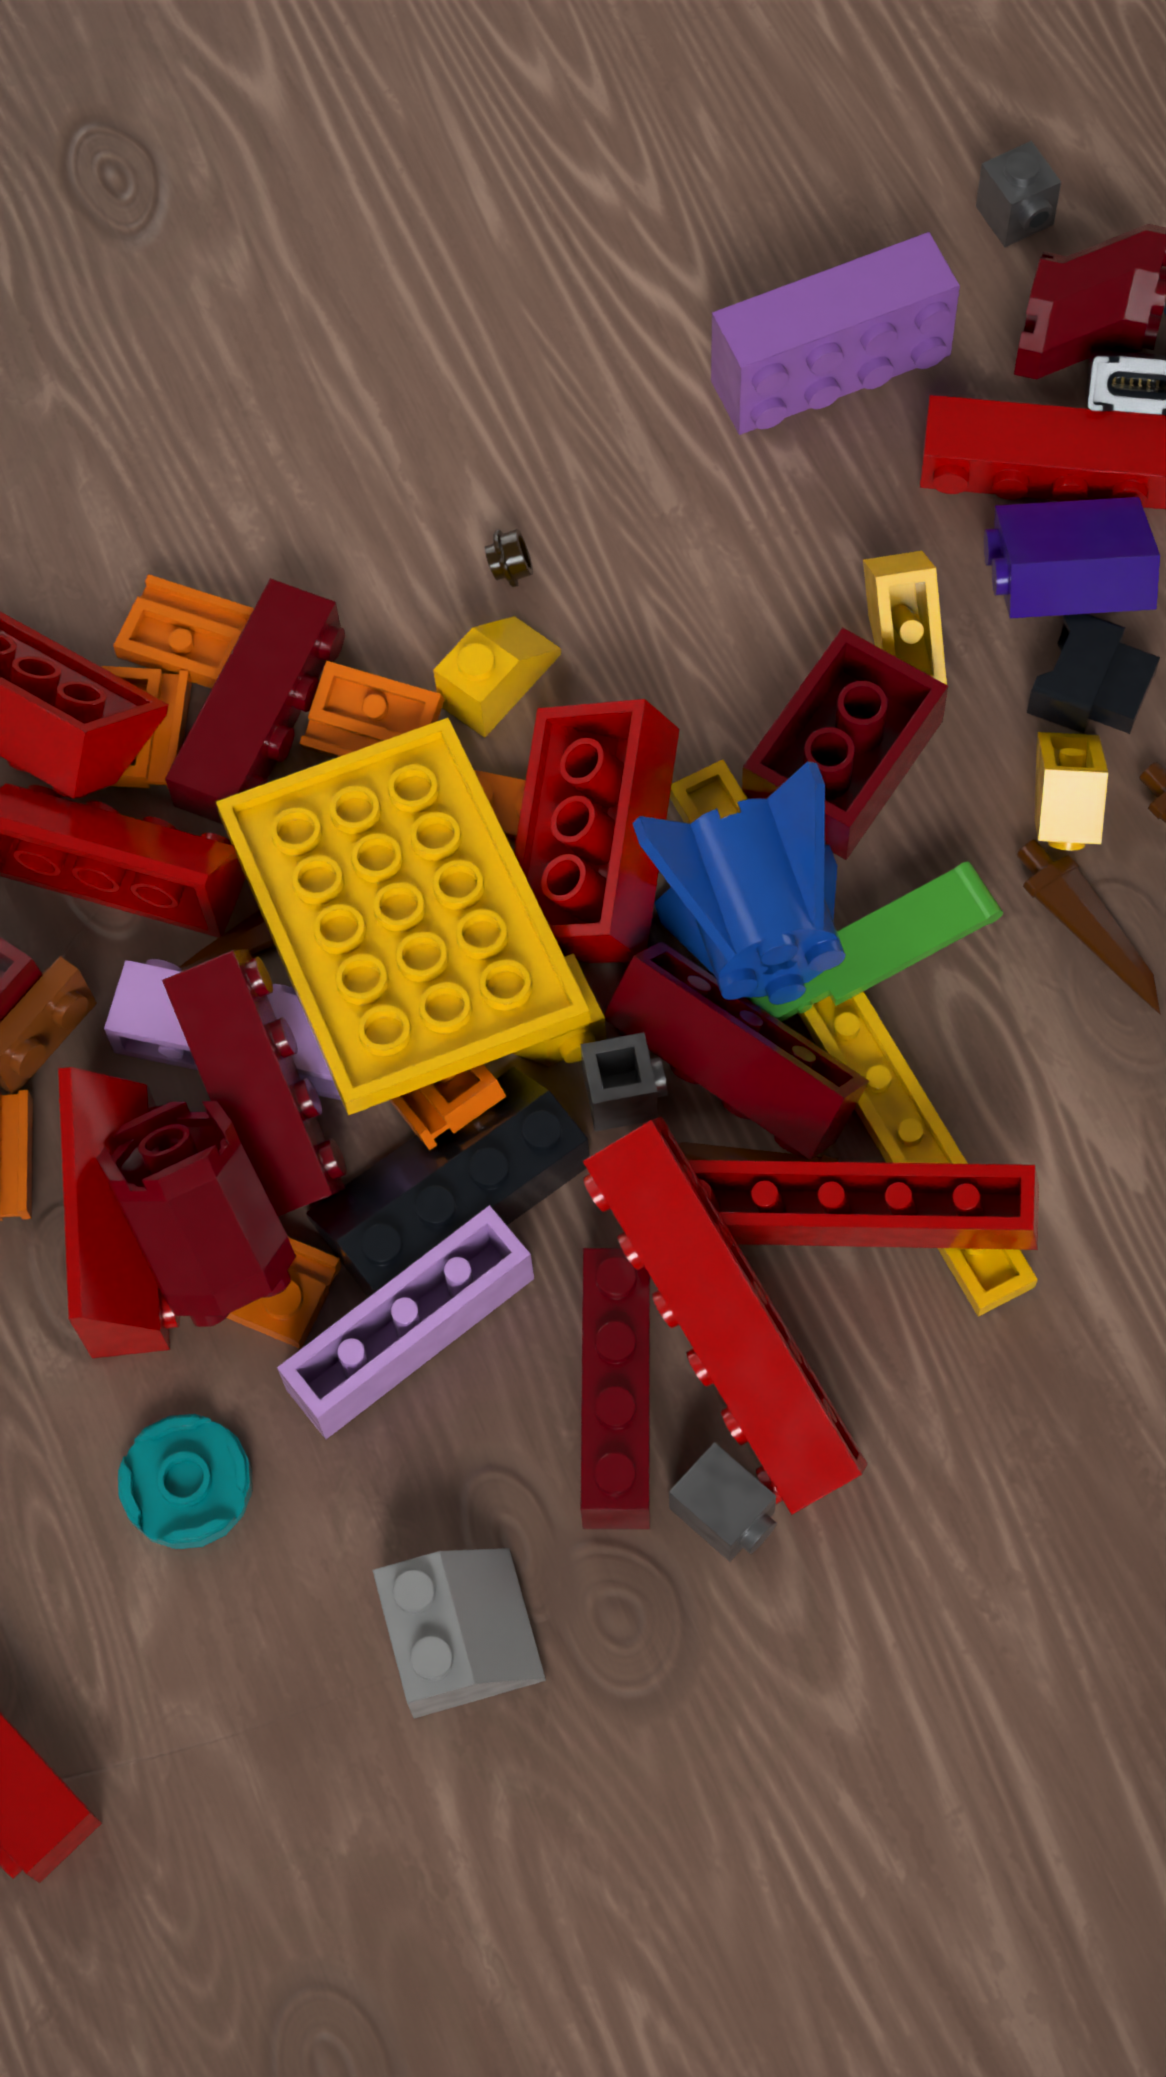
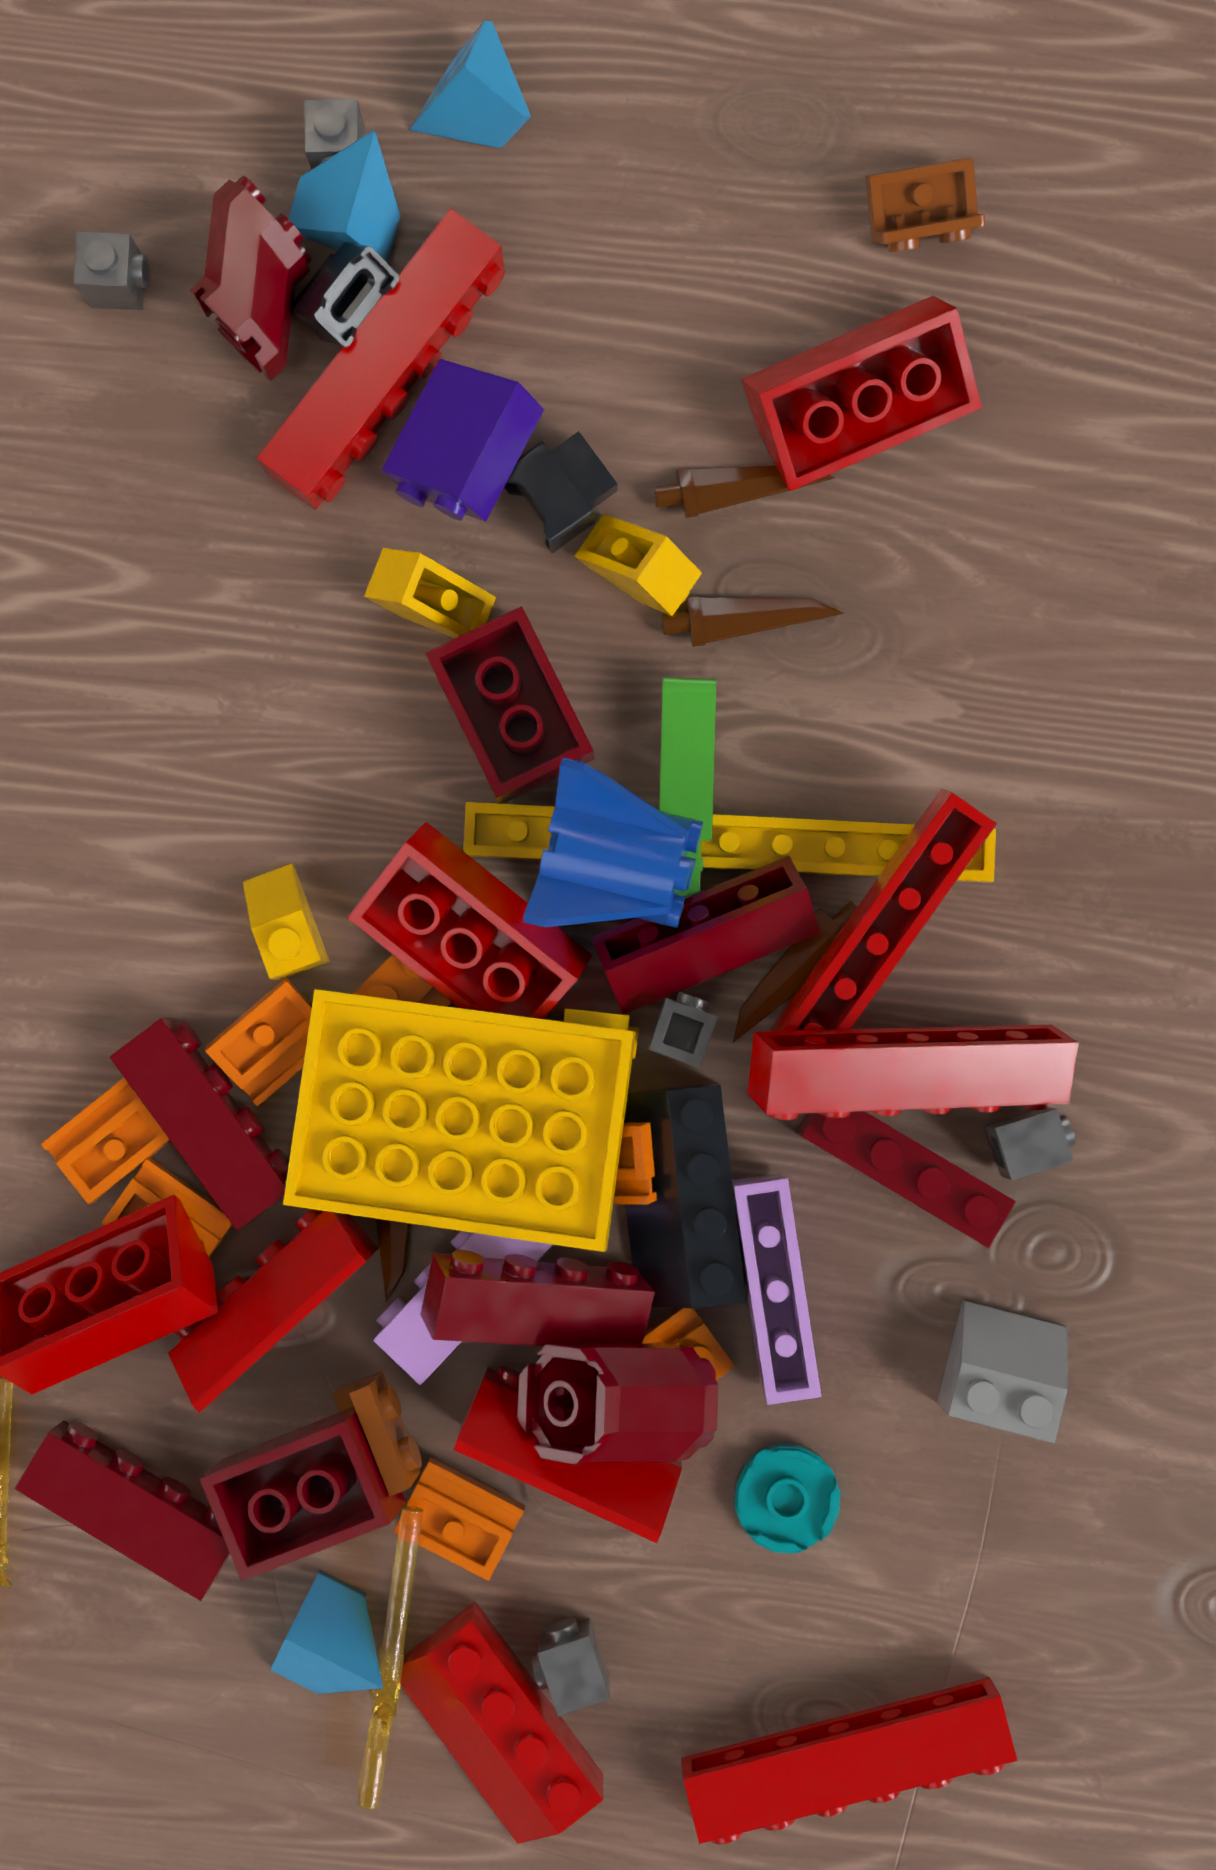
camera: 65 degrees left, 20 degrees up
(509, 557) = (191, 857): dark brown plate -> none
(834, 333) = (156, 495): medium lavender brick -> none

